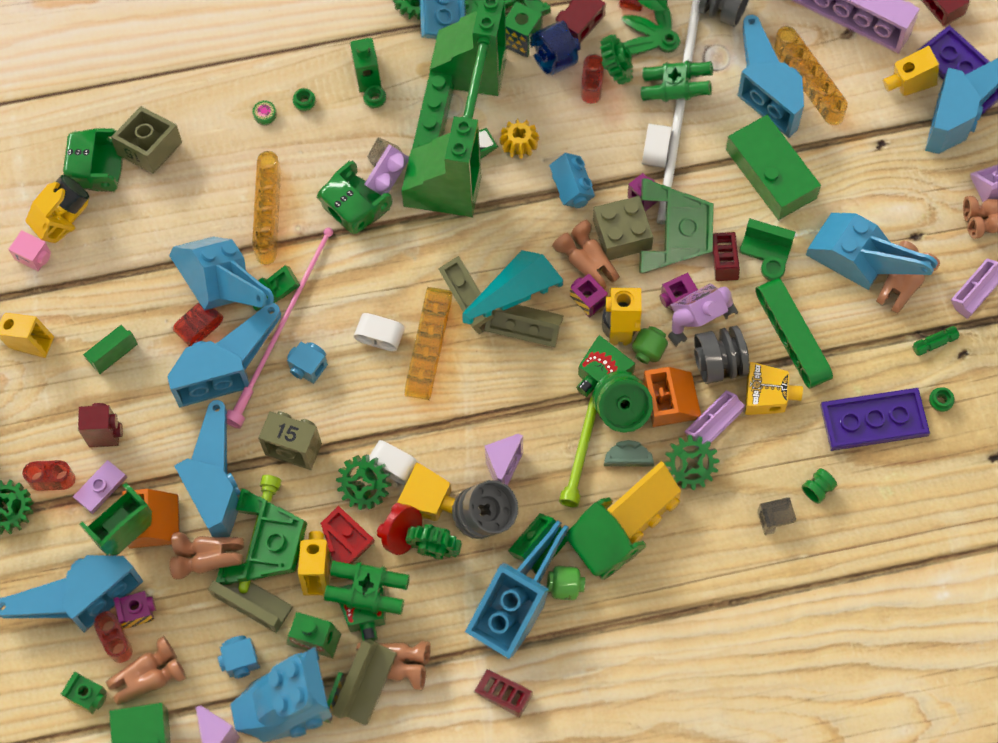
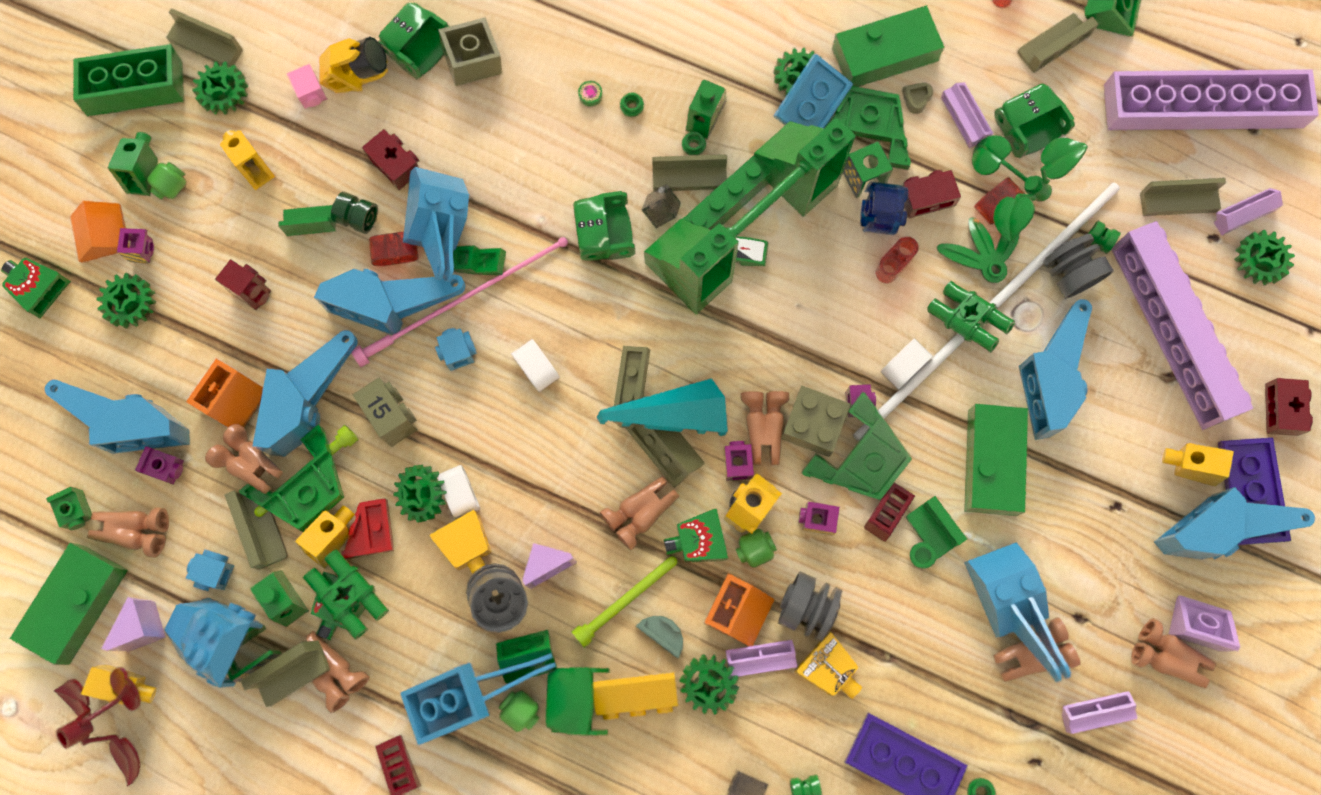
camera: 35 degrees right, 10 degrees up
(49, 472) = (178, 298): clear red beam -> none
(100, 487) = (213, 337): lavender plate -> none
(113, 637) = (121, 476): clear red beam -> none
(120, 523) = (179, 389): green piece -> none
(143, 259) = (380, 153): none -> dark red brick
(145, 316) = (354, 212): none -> dark green wheel
(266, 217) = (523, 194): clear yellow beam -> none
(387, 118) = (689, 172): none -> olive panel
(387, 170) = (649, 222): lavender tile -> none
(395, 528) = (417, 559): red tile -> none
(428, 343) = (568, 406): clear yellow beam -> none
(433, 541) = (433, 593): green gear -> none
(519, 138) = (796, 266): yellow gear -> none
(544, 377) = (644, 510): none -> nougat piece
(572, 180) = (804, 345): dark azure brick -> none
(616, 59) = (930, 258): green gear -> none
(622, 401) = (688, 586): green wheel -> none
(700, 309) = (823, 551): lavender torso -> none
(794, 333) = (894, 631): green beam -> none
(811, 84) = (1093, 405): clear yellow beam -> none
(936, 340) = (1019, 732): green axle -> none

